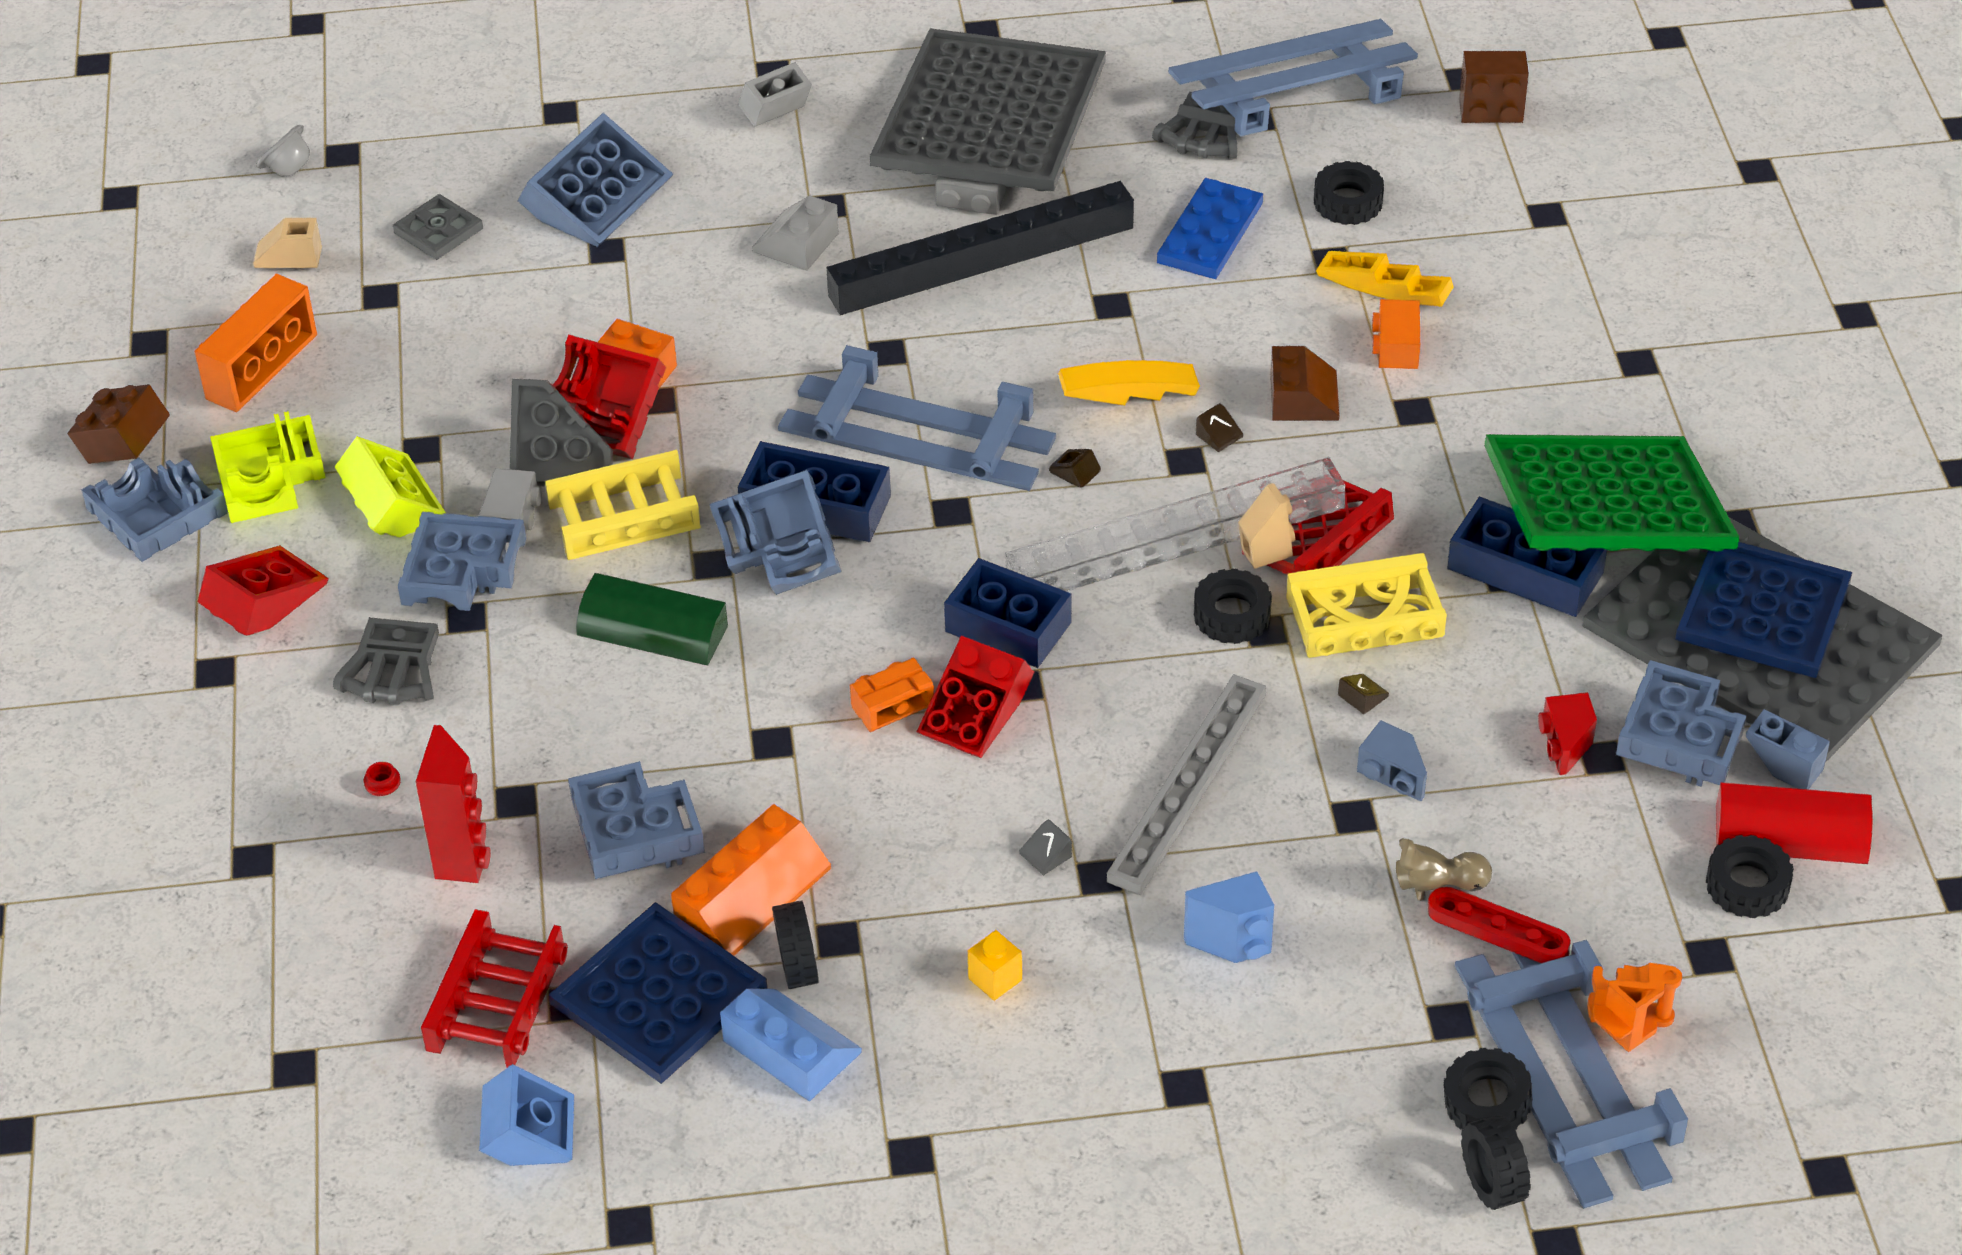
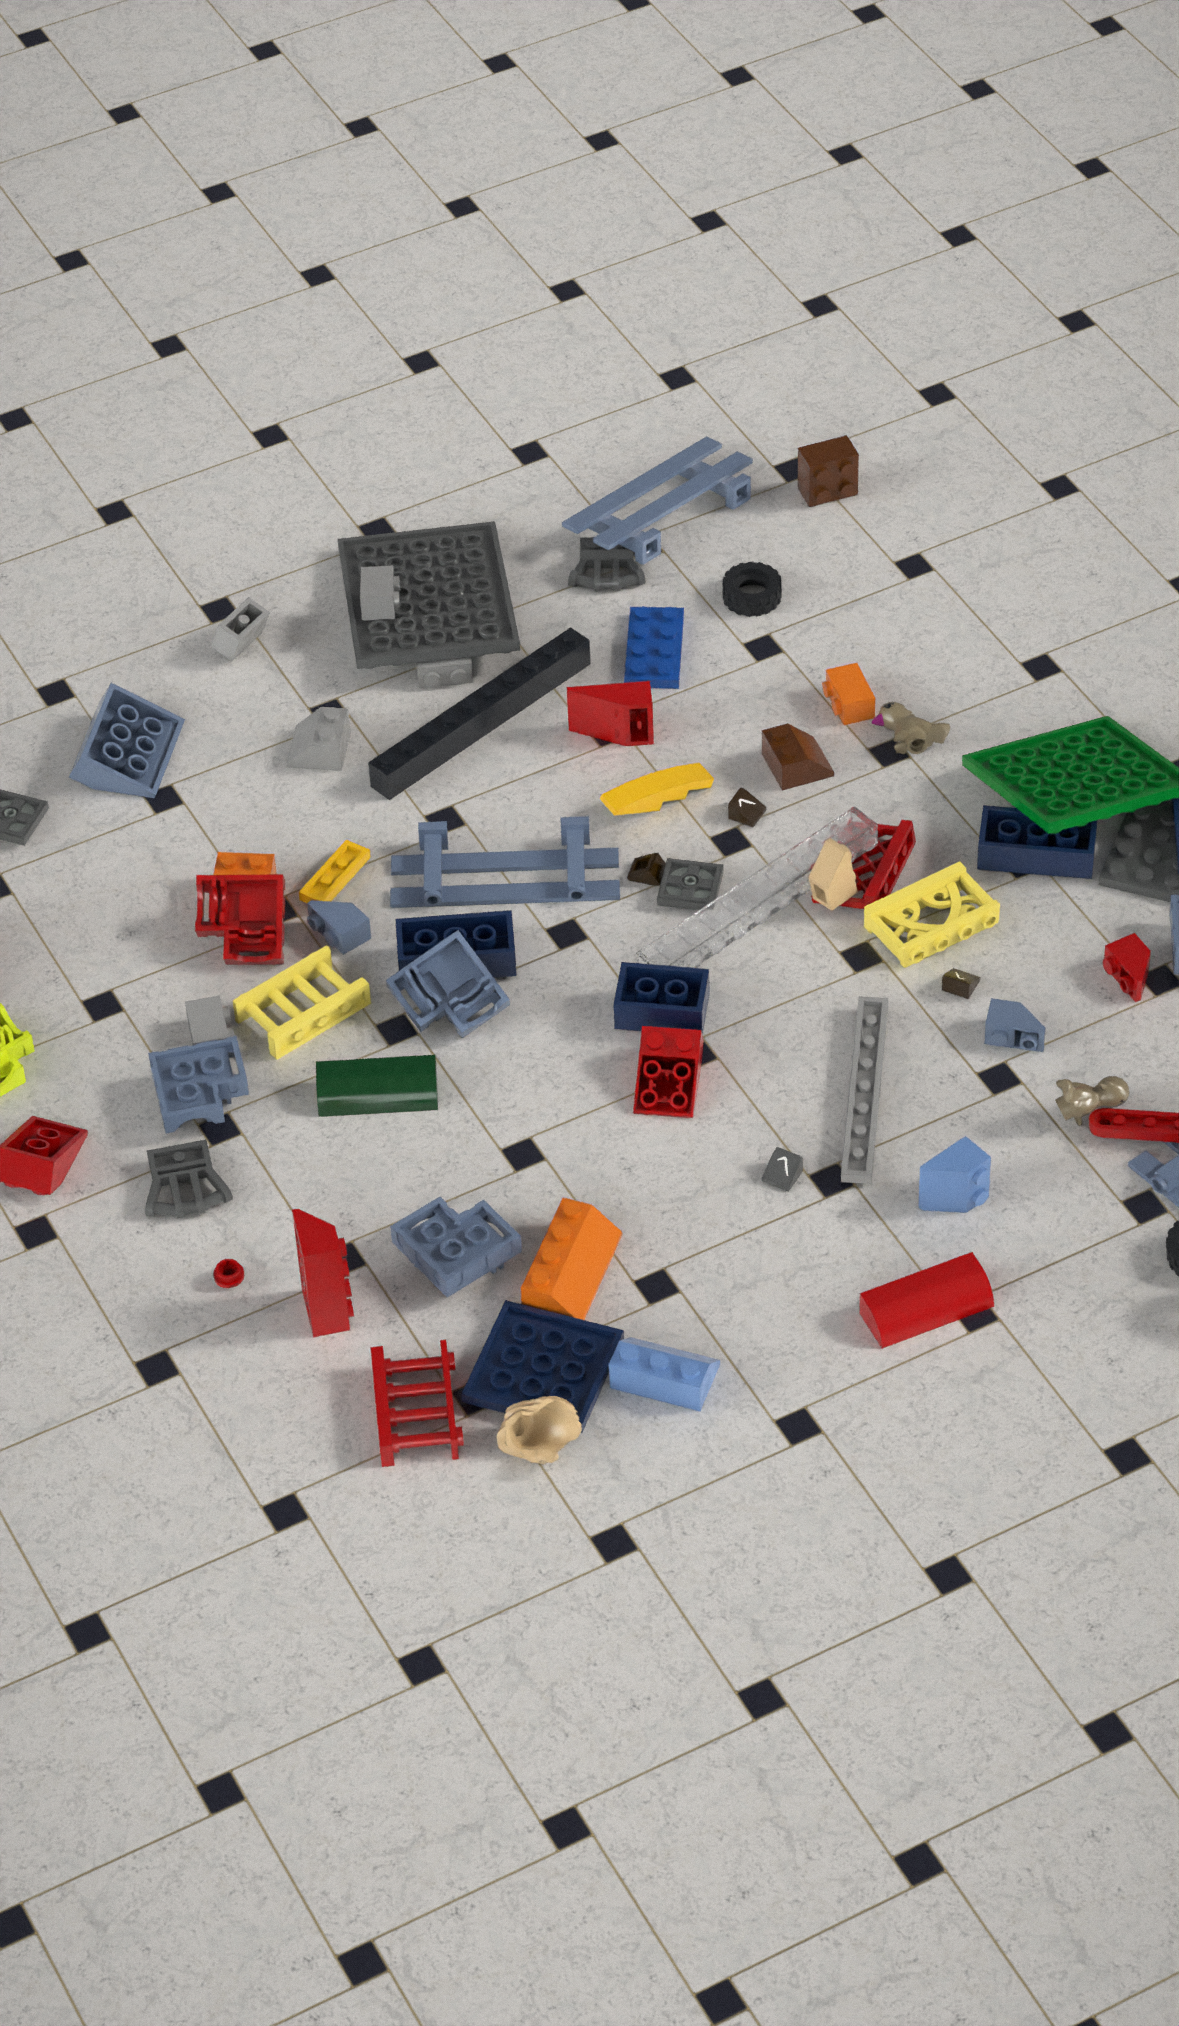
camera: 20 degrees left, 0 degrees up
(386, 487) = (98, 1044): neon yellow slope -> none
(526, 1119) = (495, 1490): medium blue slope -> none
(551, 434) = (218, 961): dark grey plate -> none
(606, 1063) = (538, 1429): none -> tan hair
(709, 432) = (339, 923): none -> sand blue slope
(734, 378) = (335, 873): none -> yellow plate
(795, 944) = (637, 1297): black tyre -> none
(891, 694) = (601, 1088): orange brick -> none
(930, 91) = (379, 592): none -> light grey brick
(995, 965) = (792, 1267): yellow brick -> none
(1111, 493) = (689, 884): none -> dark grey piece
(1121, 283) = (612, 712): none -> red slope
(1131, 1052) = (926, 1300): none -> red brick
(1232, 627) = (829, 961): black tyre -> none
(1377, 277) = (806, 652): yellow slope -> none
(1445, 392) = (910, 731): none -> dark tan animal

